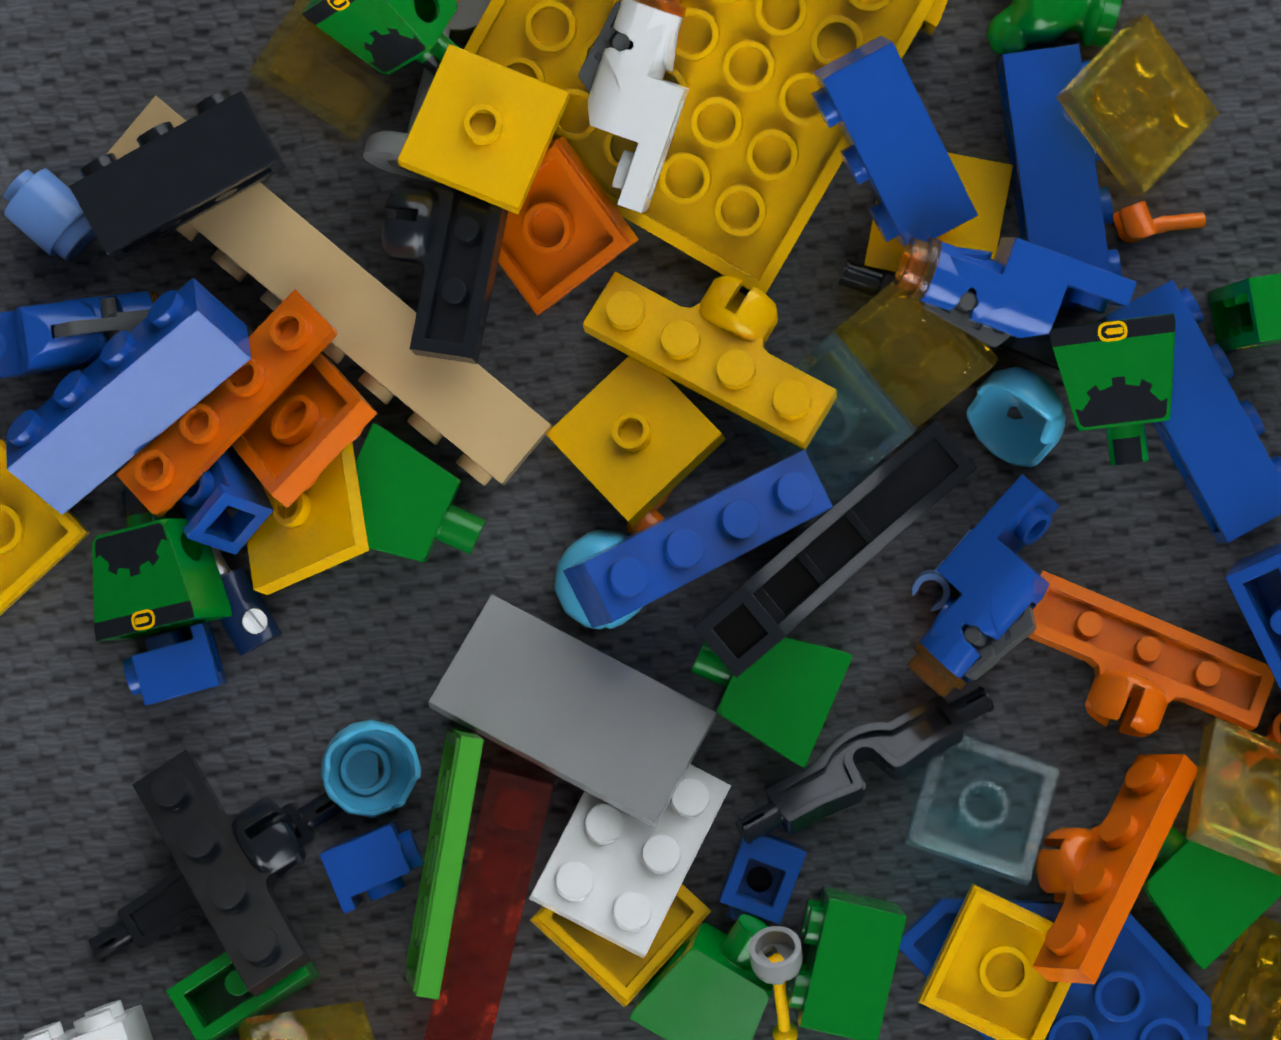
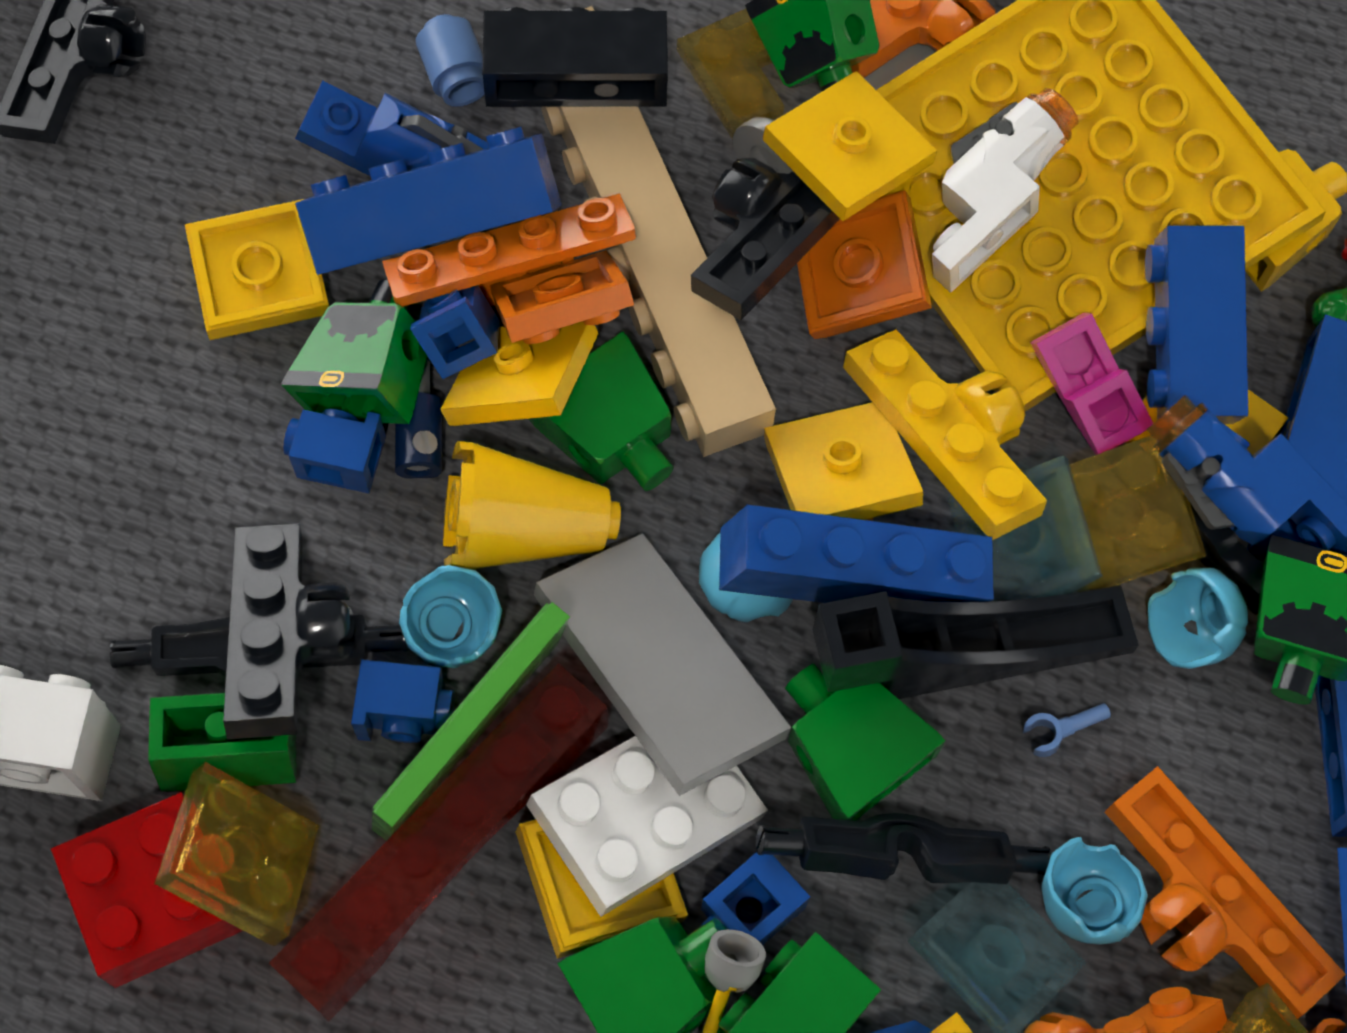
camera: 25 degrees right, 20 degrees down
(377, 641) = (521, 511): none -> yellow cone
(821, 242) = (1091, 384): none -> dark pink slope
(995, 592) = (1104, 752): blue plate -> none
(1055, 720) = (1112, 906): none -> medium azure hair

